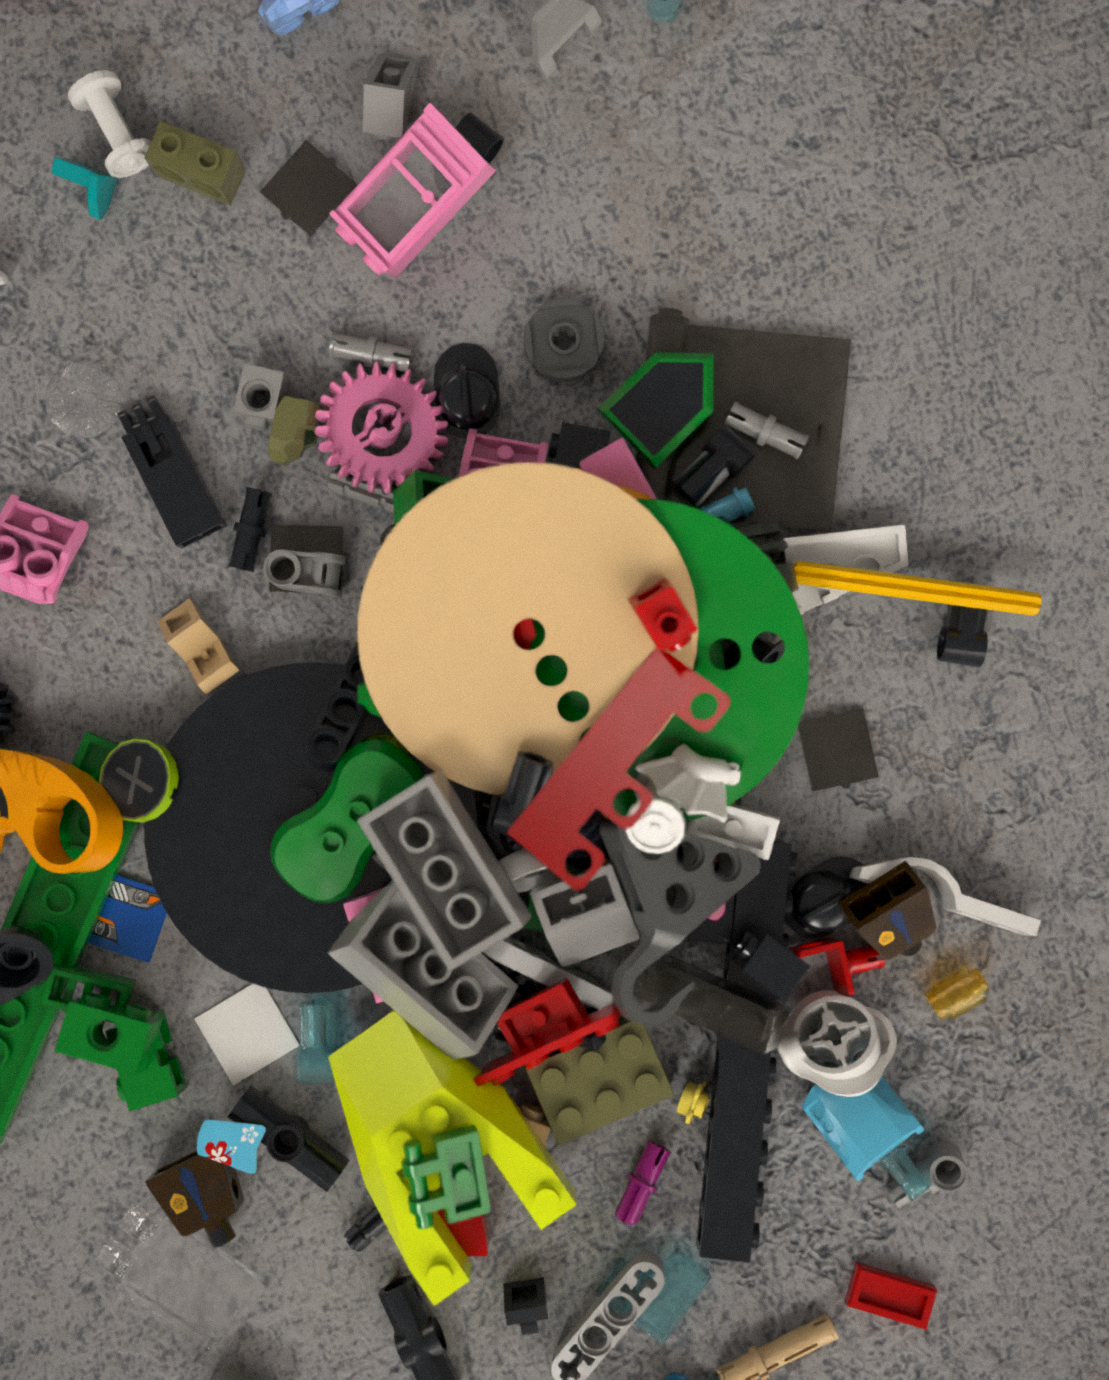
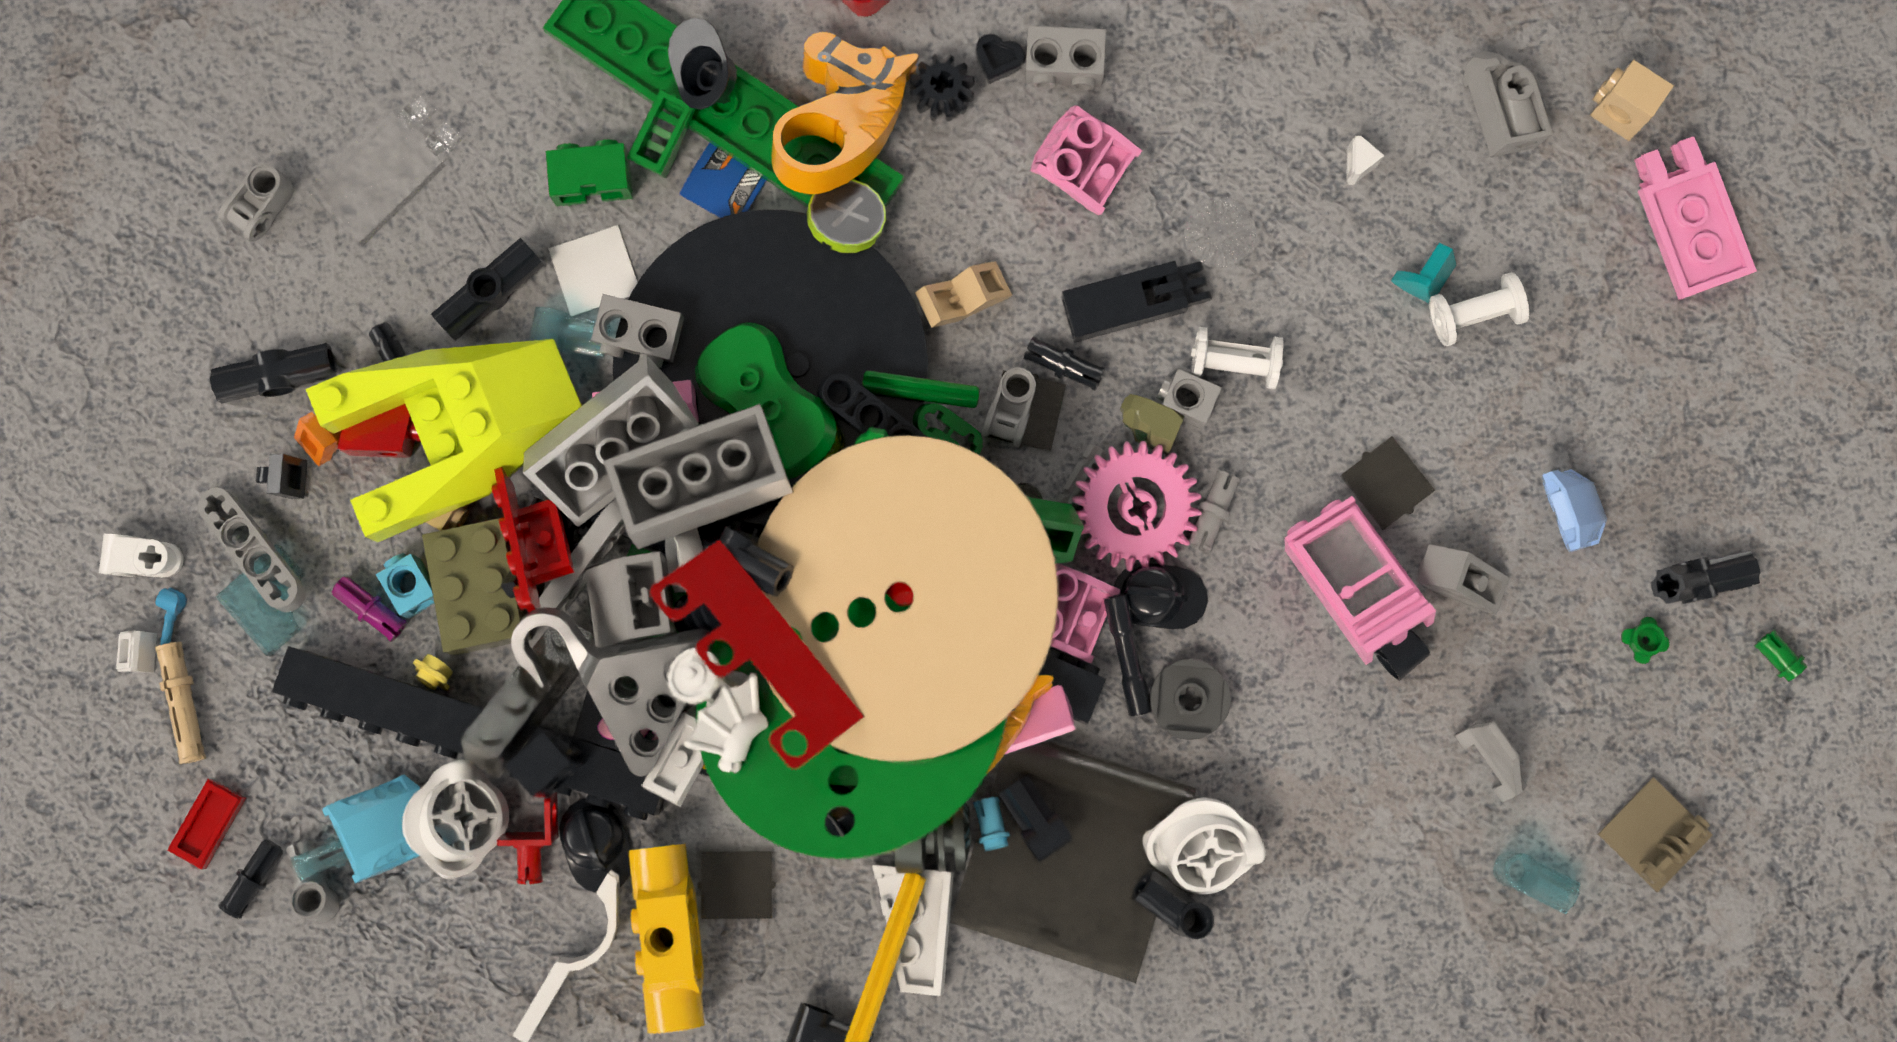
camera: 110 degrees right, 5 degrees down
(84, 1036) = (619, 123): green brick -> none
(195, 163) = (1427, 379): olive brick -> none
(198, 1196) = (458, 200): dark brown torso -> none
(209, 354) = (1237, 357): none -> white hose
(230, 1143) = (495, 235): medium azure sticker -> none
(290, 969) = (640, 321): none -> light grey brick
(305, 665) = (921, 389): none -> green axle
(335, 628) = (951, 421): none -> green beam
(460, 1177) = (418, 436): green plate -> none
(484, 1278) = (316, 440): none -> orange tile
(510, 417) = (1122, 629): none -> black piece
(610, 1167) = (420, 597): none -> medium azure brick
(662, 403) = (1105, 779): black tile -> none
(664, 616) = (887, 724): red brick -> none
(707, 294) = (1196, 850): none -> white piece
(766, 430) = (1060, 878): light grey pin -> none
(771, 315) = (1171, 905): none -> black piece
(892, 912) = (565, 896): dark brown torso -> none
(936, 1236) = (251, 879): none -> black axle
(937, 795) = (673, 973): none -> yellow brick
(957, 993) = (476, 949): clear yellow brick -> none

